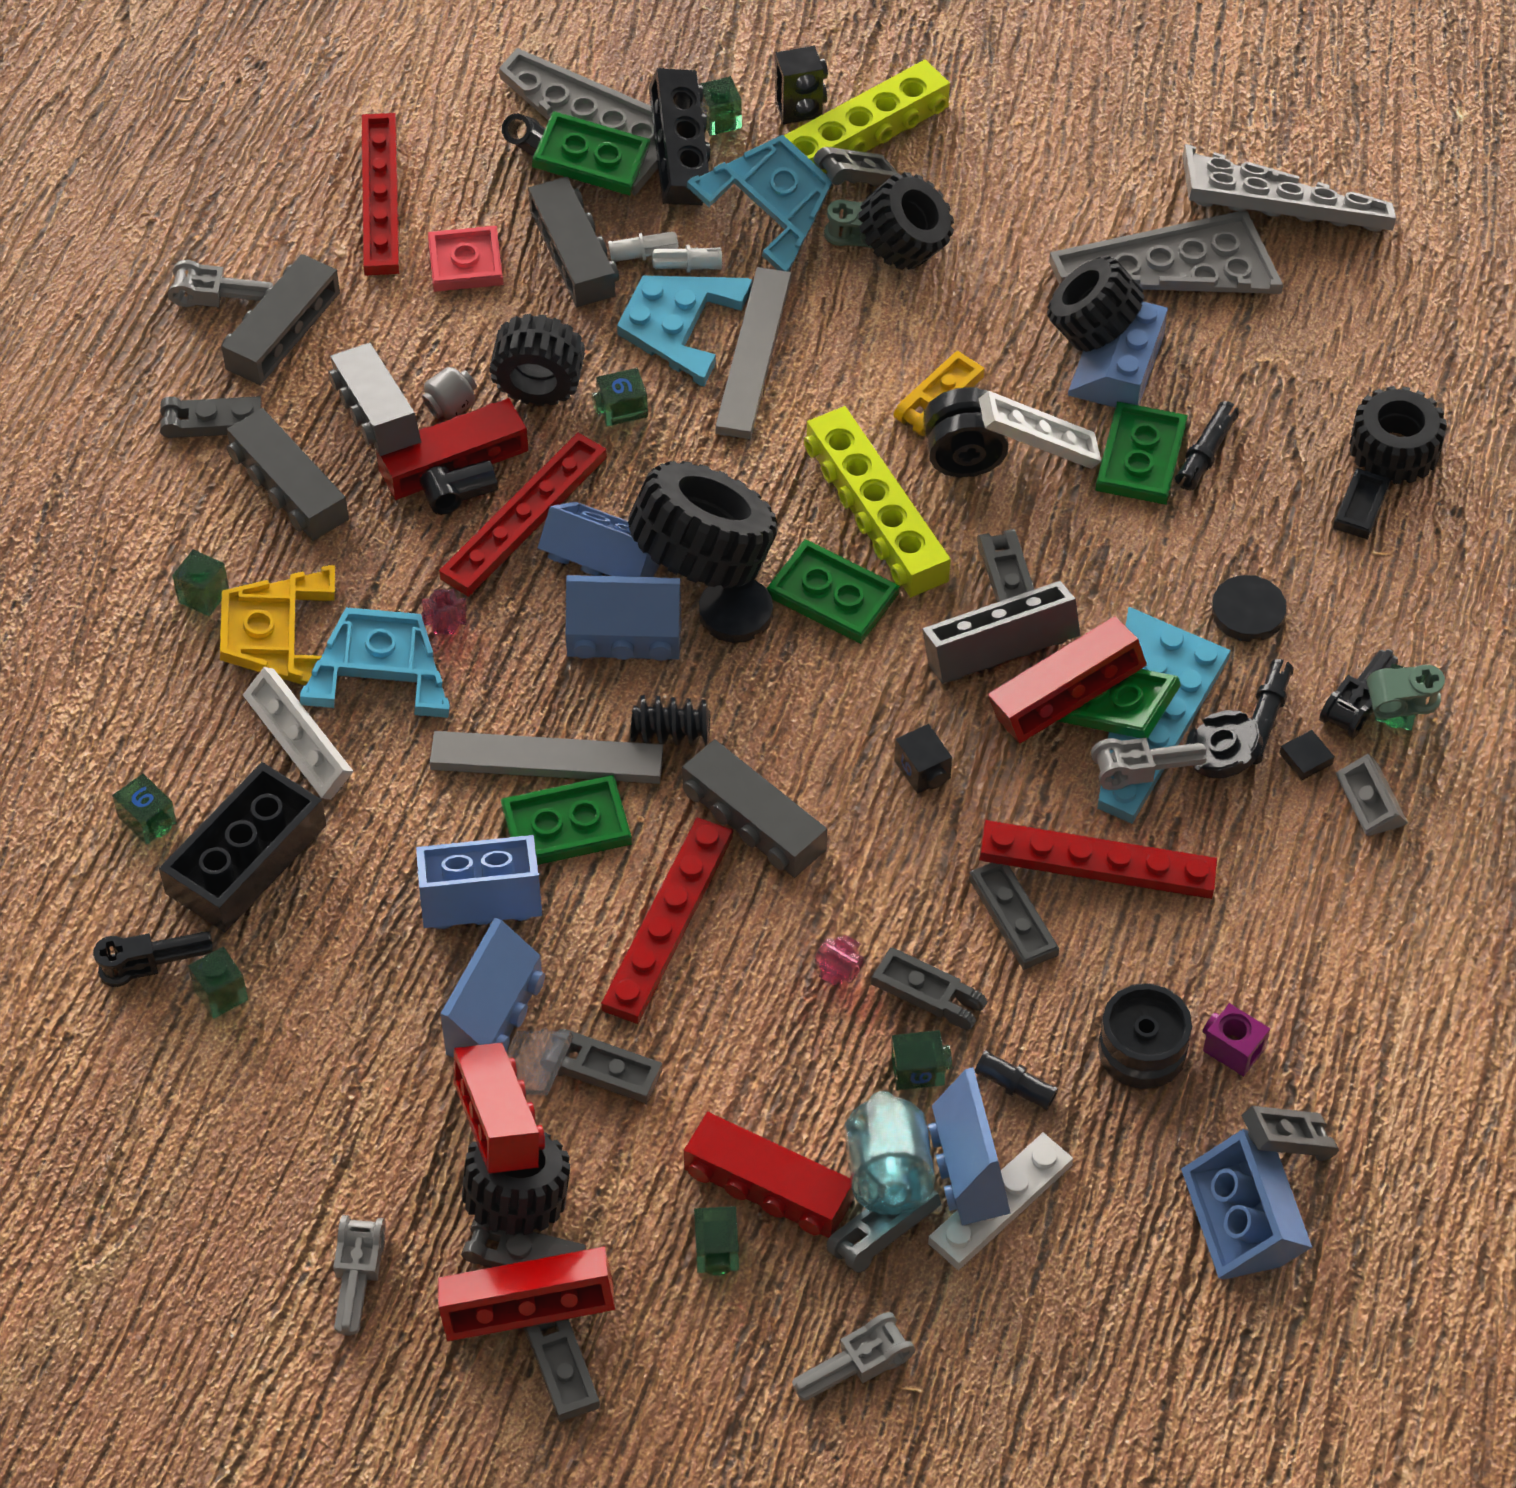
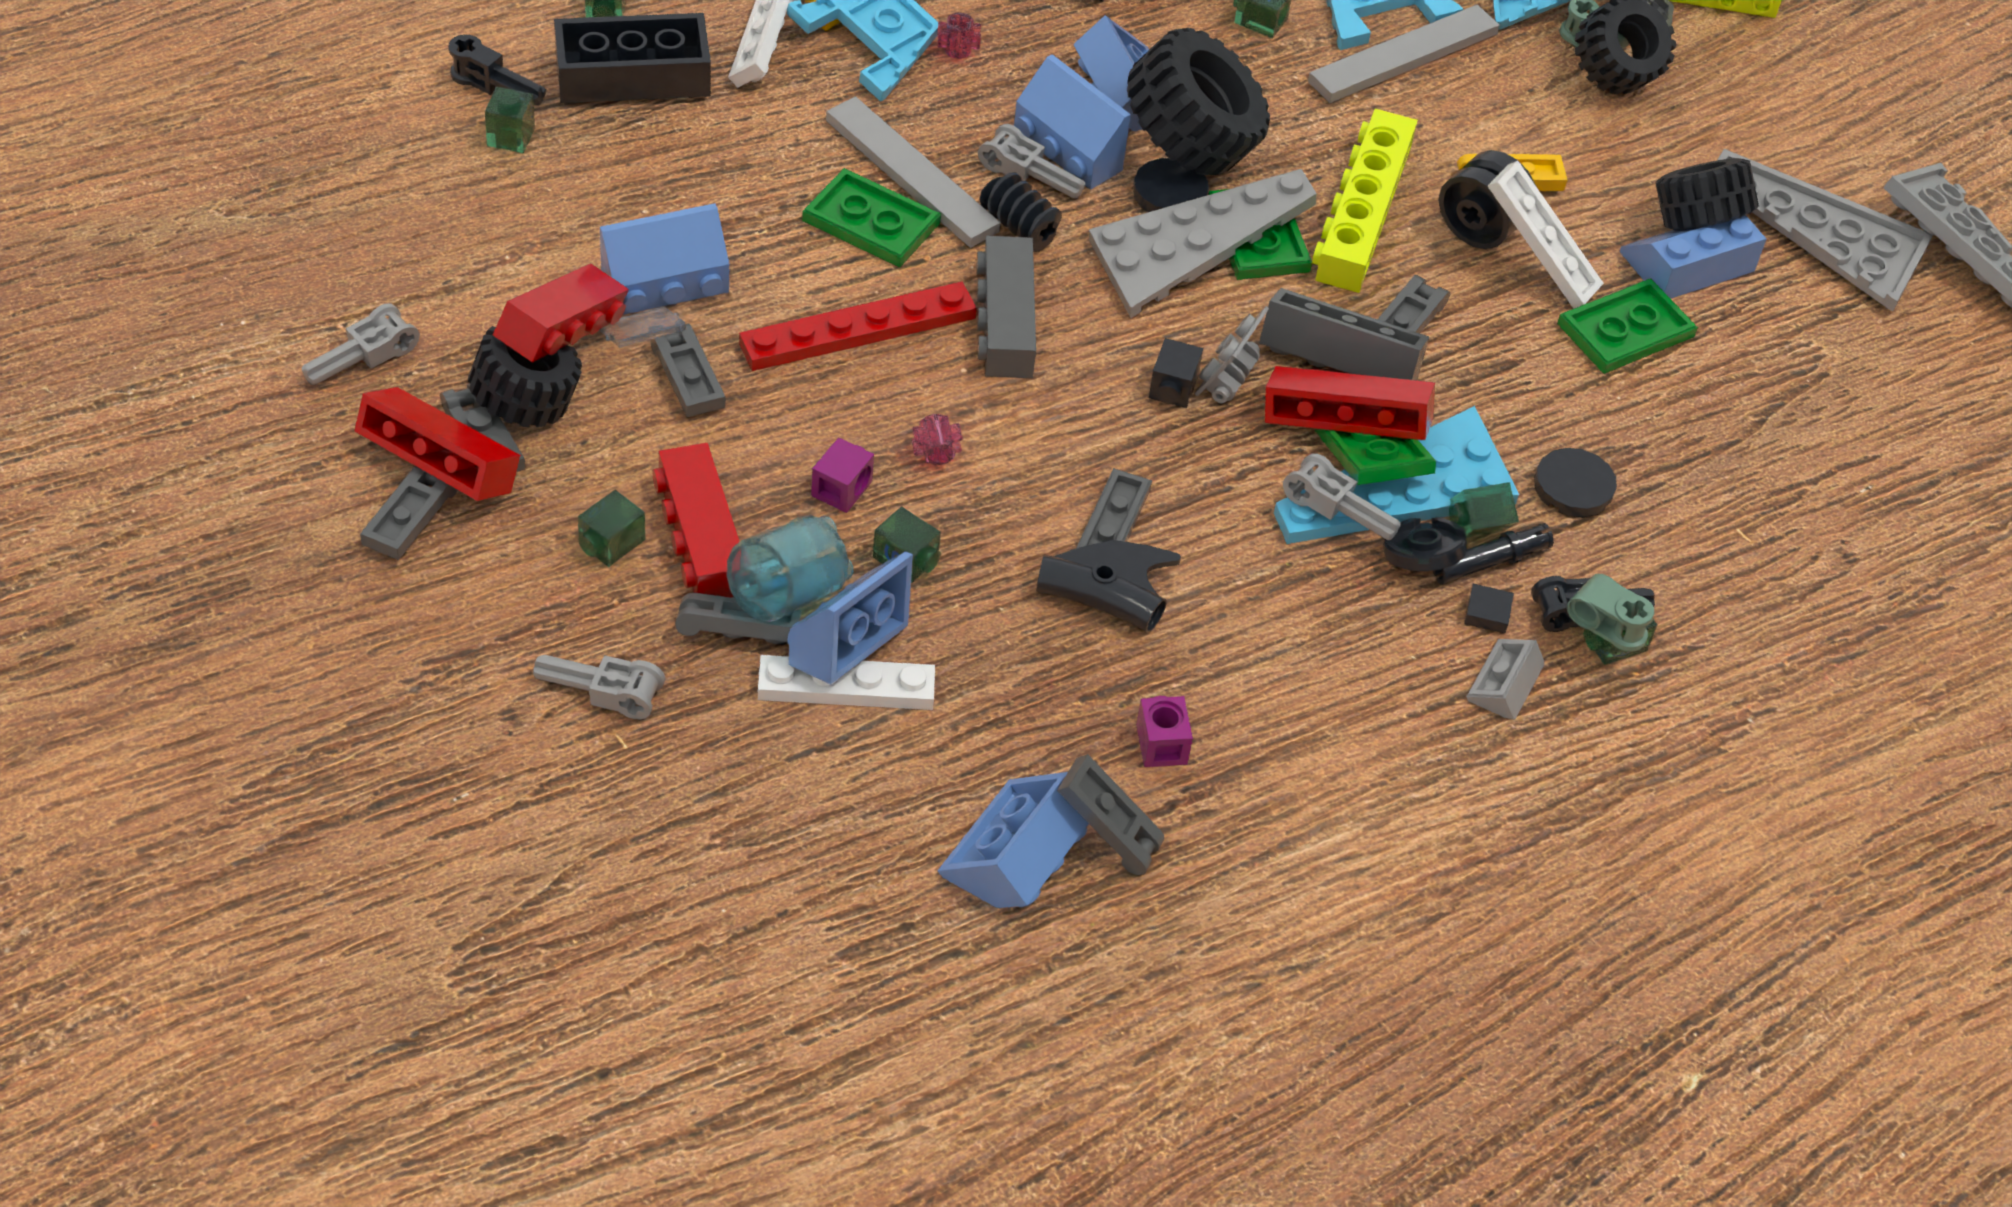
camera: 40 degrees right, 5 degrees down
(478, 882) = (755, 196): medium blue slope -> none
(522, 514) = (1072, 22): red plate -> none
(612, 678) = (1026, 158): none -> light grey connector
(799, 649) = (1187, 239): none -> light grey wing
(812, 1047) = (842, 474): none -> magenta brick
(927, 988) = (978, 509): dark grey hinge -> none
(949, 708) = (1234, 361): none -> light grey hinge
(1016, 1080) = (962, 618): black pin -> none
(1070, 960) = (1110, 579): none -> black pin
(1098, 859) = (1223, 538): red plate -> none
(1144, 1036) = (1091, 665): black wheel -> none
(1201, 455) = (1671, 359): black pin -> none
(1231, 683) = (1484, 509): none -> clear green brick
(1362, 503) = (1770, 489): black tile -> none
(1404, 414) = (1859, 461): black tyre -> none

